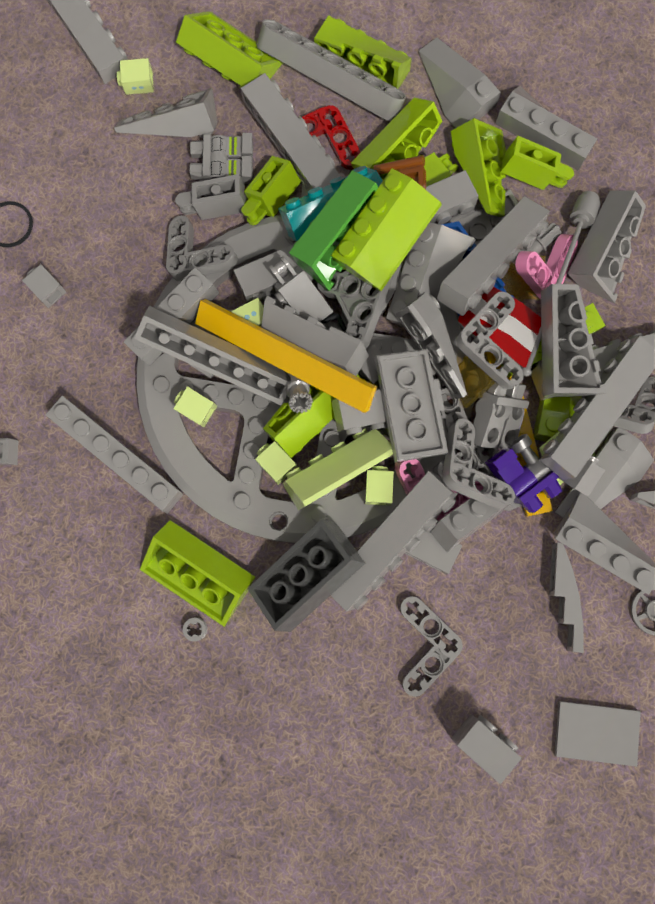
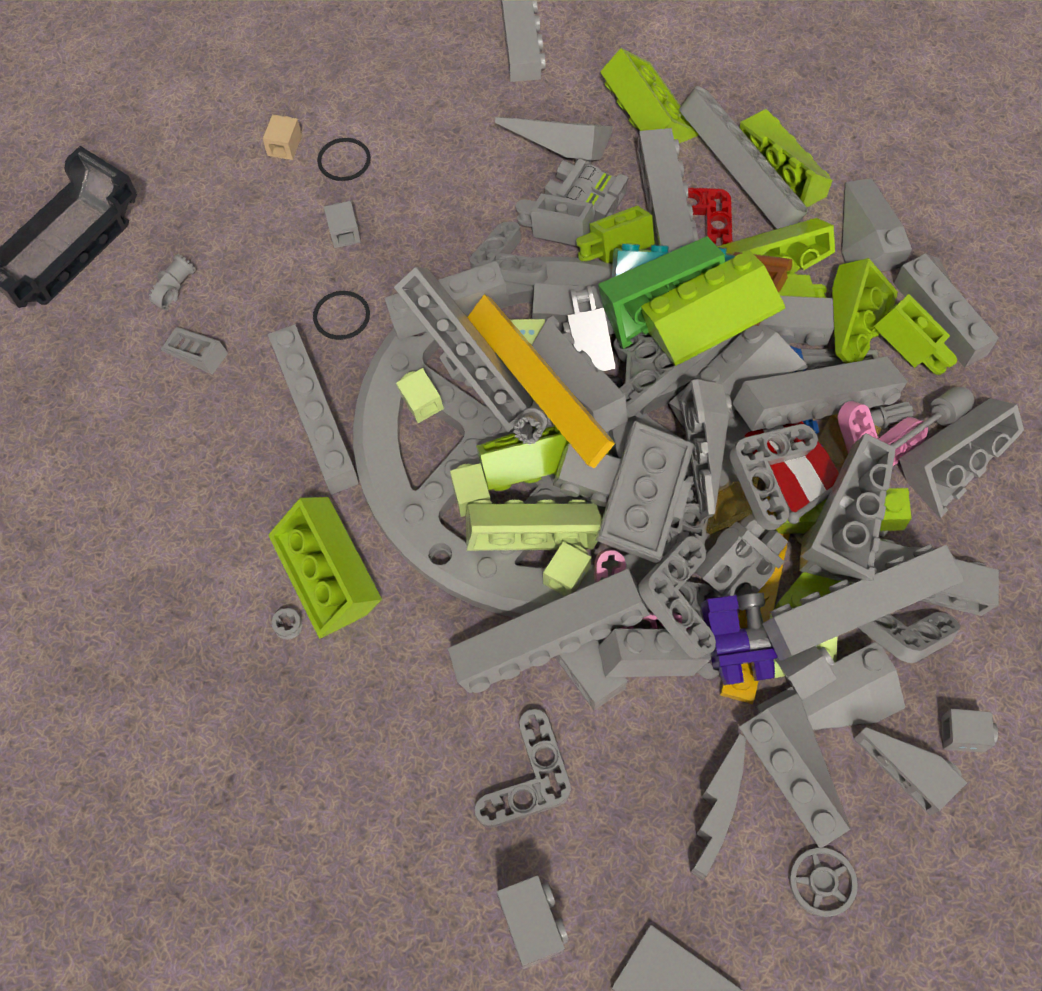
camera: 25 degrees right, 15 degrees down
(92, 384) = (341, 337): none -> black piece
(136, 76) = (544, 85): yellowish green brick -> none
(305, 576) = (434, 619): dark grey brick -> none

